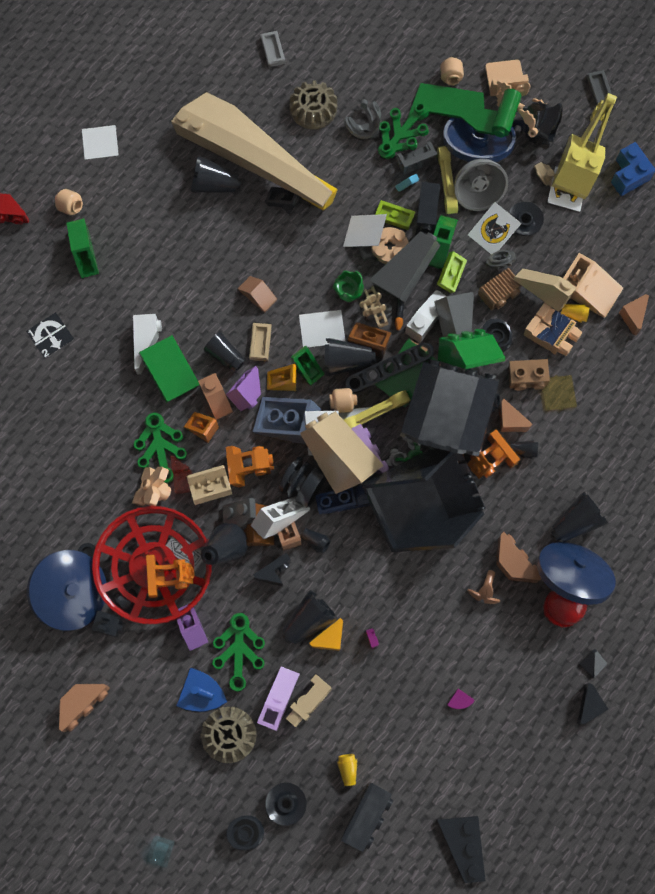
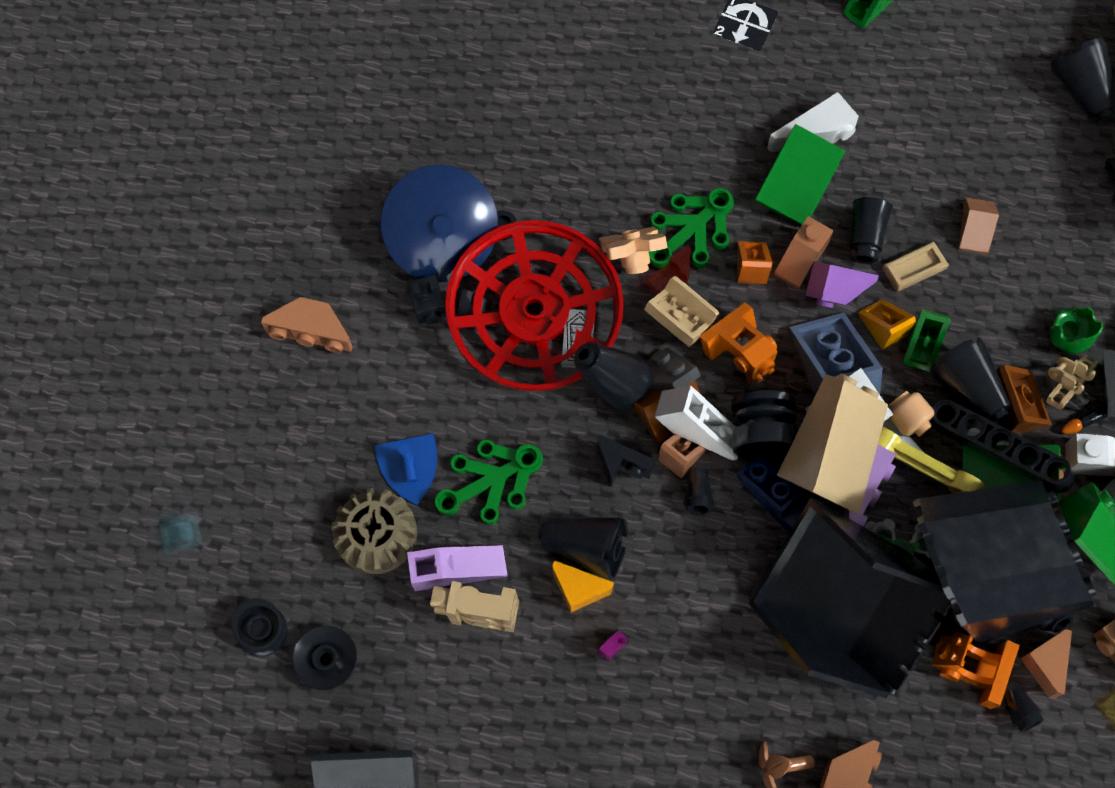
camera: 60 degrees right, 5 degrees down
(156, 576) = (523, 313): orange tile -> none
(192, 629) = (482, 403): medium lavender slope -> none
(321, 325) = (995, 327): white sticker -> none
(348, 768) = (417, 715): yellow cone -> none

